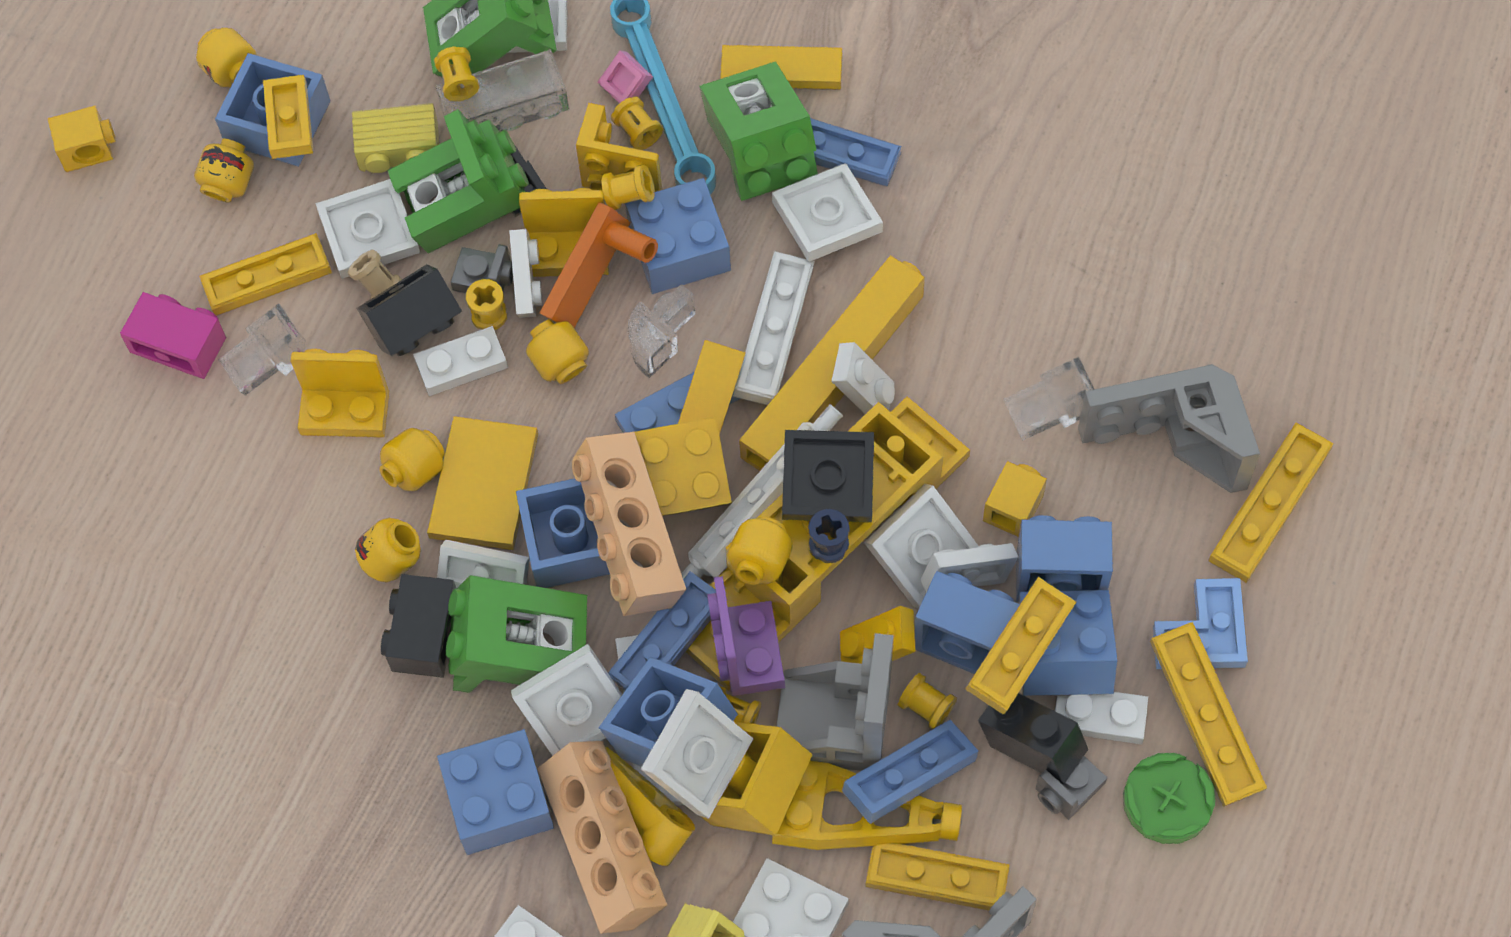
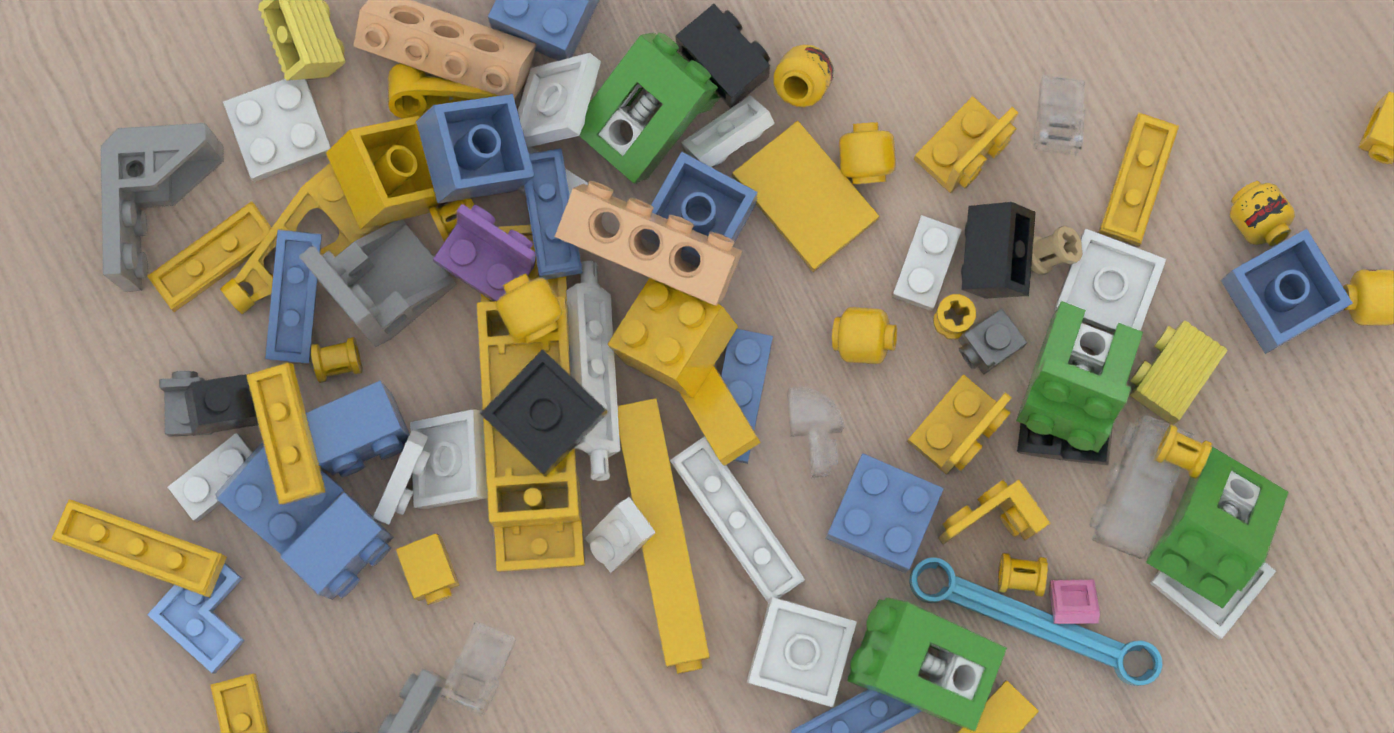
camera: 130 degrees right, 15 degrees up
(173, 334) = (1138, 65): dark pink brick -> none
(288, 116) = (1251, 279): yellow plate -> none
(524, 255) = (964, 370): white plate -> none
(589, 259) = (923, 441): orange piece -> none
(628, 187) = (945, 491): yellow bush -> none
(697, 753) = (415, 128): white plate -> none
(830, 522) = (490, 356): dark blue bush -> none
(894, 622) = (406, 357): yellow plate -> none
(1168, 798) = (113, 467): bright green tile -> none

